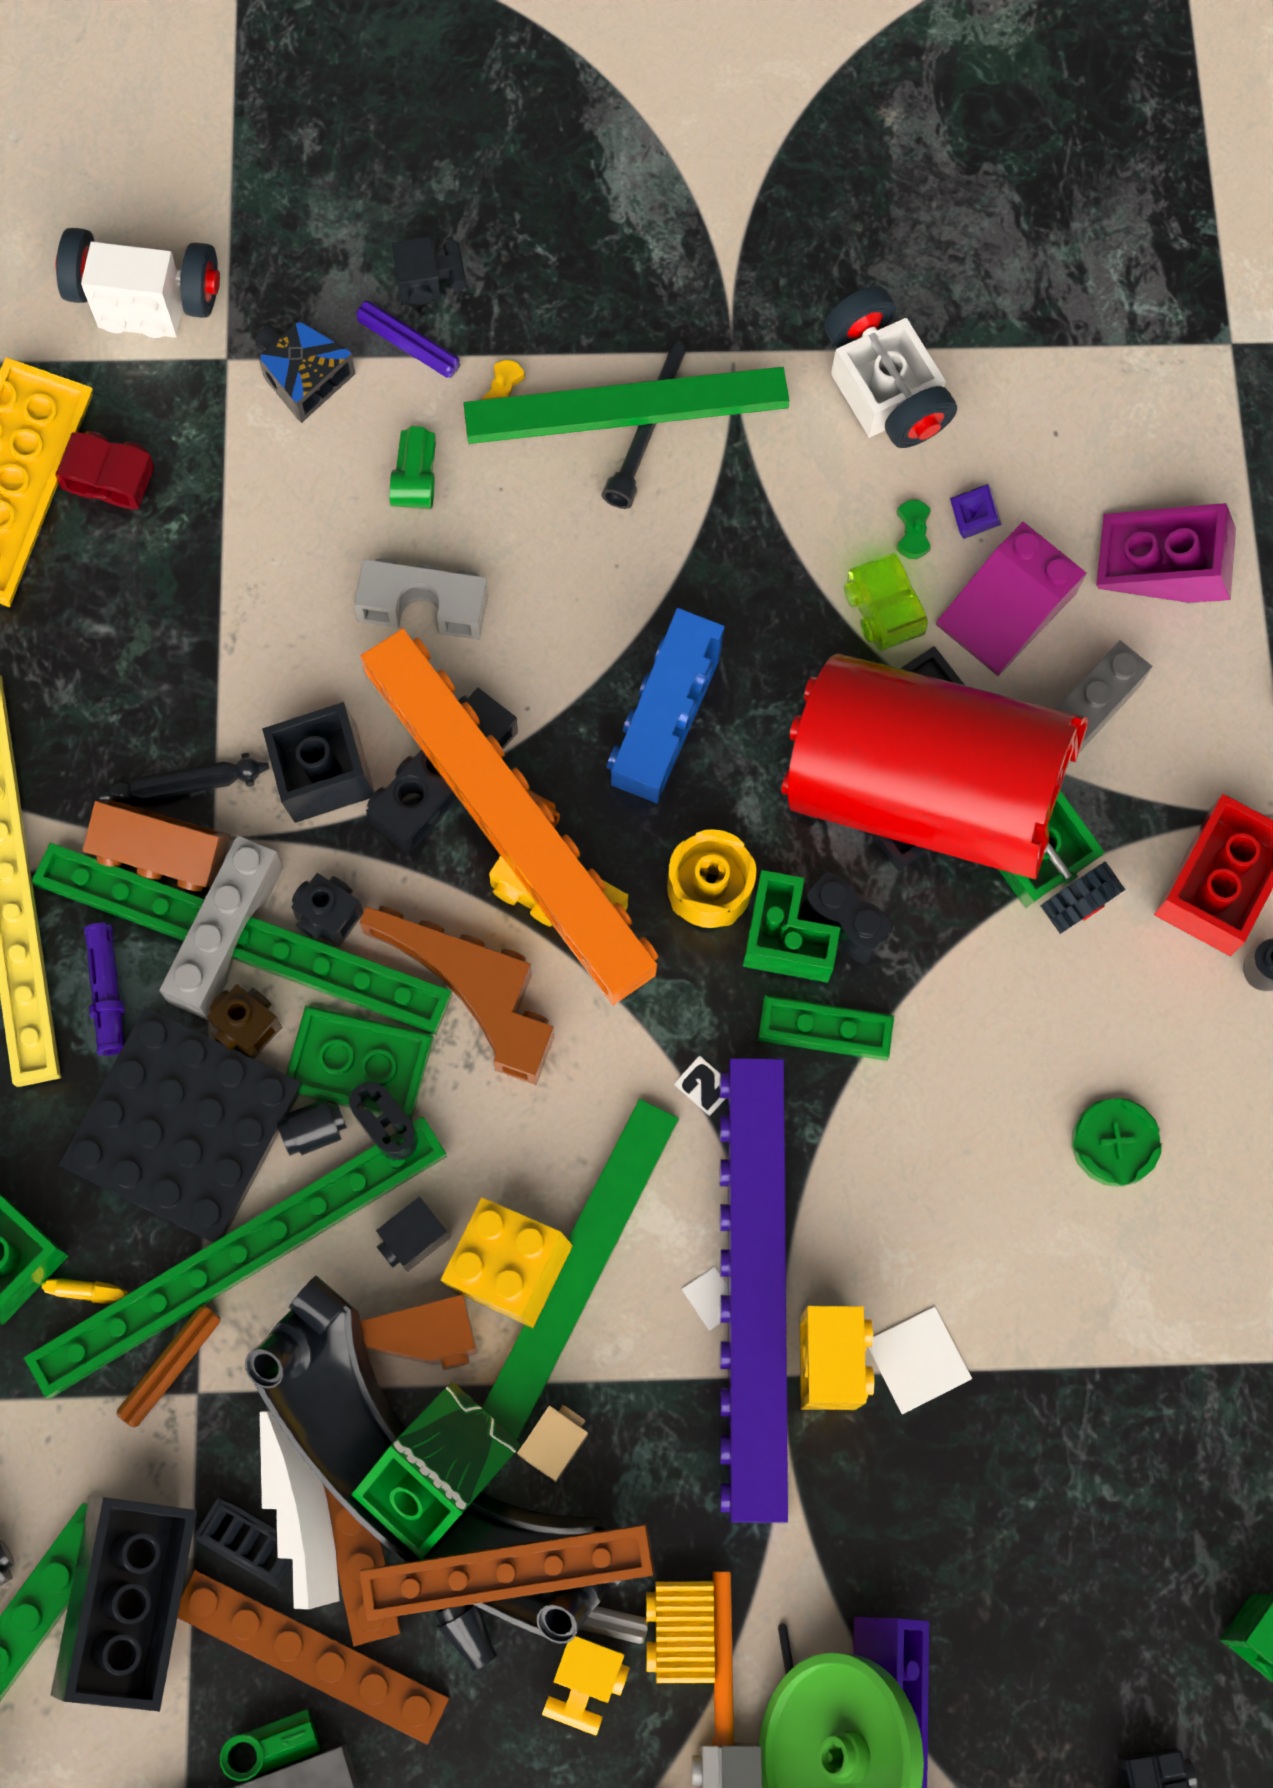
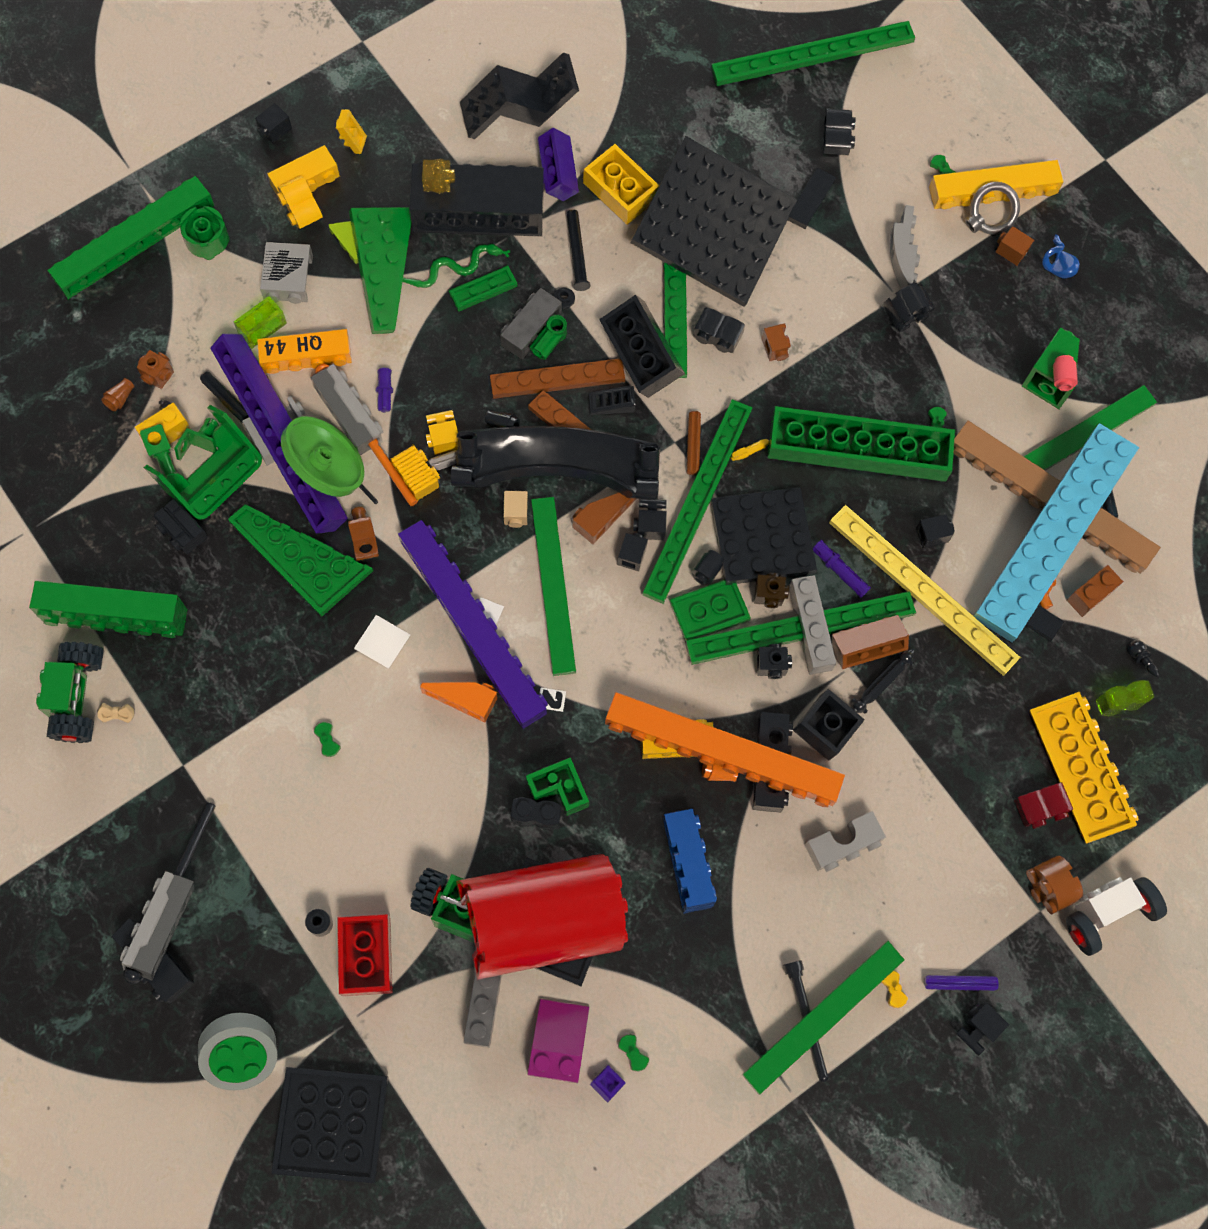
camera: 145 degrees right, 0 degrees up
(184, 358) = (1054, 884): none -> dark orange brick
(302, 1517) = (593, 414): white slope -> none
(303, 367) = (998, 926): black torso -> none
(346, 1263) = (651, 522): none -> black brick
(391, 1115) = (677, 591): black beam -> none
(414, 480) = (897, 901): green piece -> none
(435, 1469) = (554, 465): slope -> none
(484, 981) = (681, 676): dark orange arch -> none
(506, 1572) = (498, 441): dark orange plate -> none
(507, 1262) = (584, 562): yellow brick -> none
(704, 902) = (617, 776): yellow brick -> none
(826, 1028) = (513, 759): green tile -> none
(834, 1358) = (419, 608): yellow brick -> none
(841, 1167) = (466, 697): none -> orange slope
(842, 1574) = (362, 533): none -> dark orange bracket
(886, 370) = (703, 1128): brick -> none
(886, 602) = (620, 995): clear neon green brick -> none
(971, 1576) = (305, 563): none -> green wing
(1100, 1265) = (329, 747): none -> green piece
(1116, 1142) = (347, 793): green tile -> none
(1169, 553) = (492, 1126): magenta slope -> none

